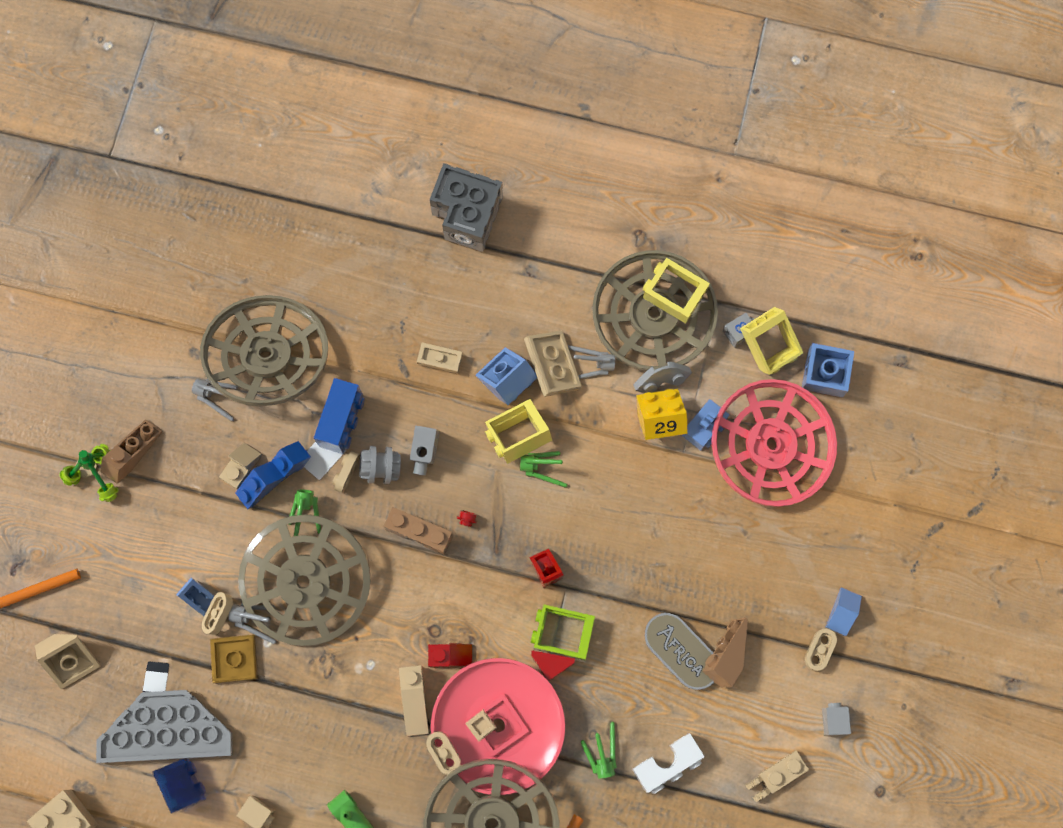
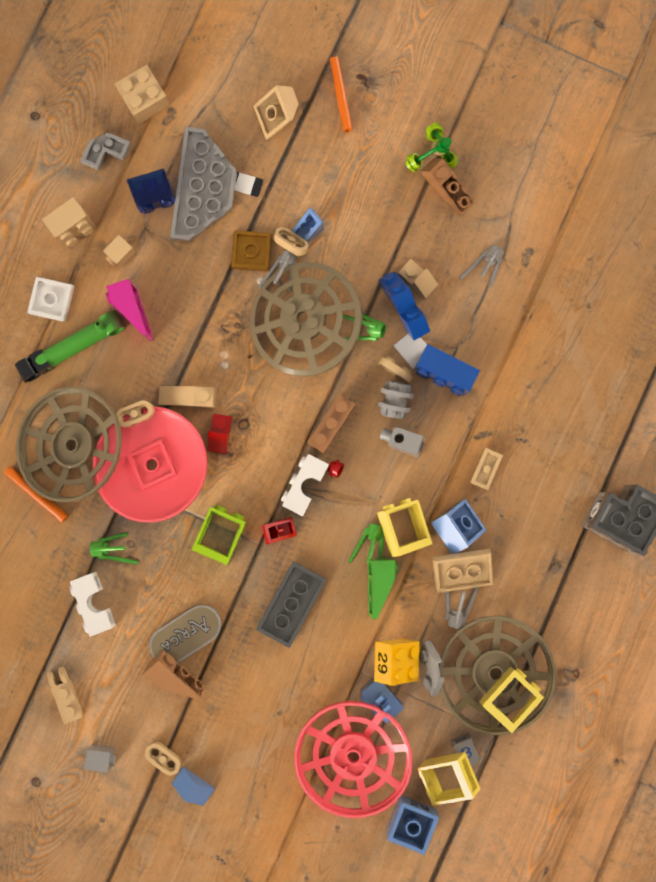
camera: 100 degrees right, 10 degrees up
(262, 342) = (527, 312): dark tan dish -> none
(318, 787) = (127, 301): none -> dark pink slope
(481, 725) = (151, 449): tan tile -> none
(507, 556) = (310, 468): none -> white arch
(551, 664) = (194, 519): red slope -> none
(581, 448) = (380, 580): none -> bright green slope
(624, 539) = (291, 604): none -> dark grey plate

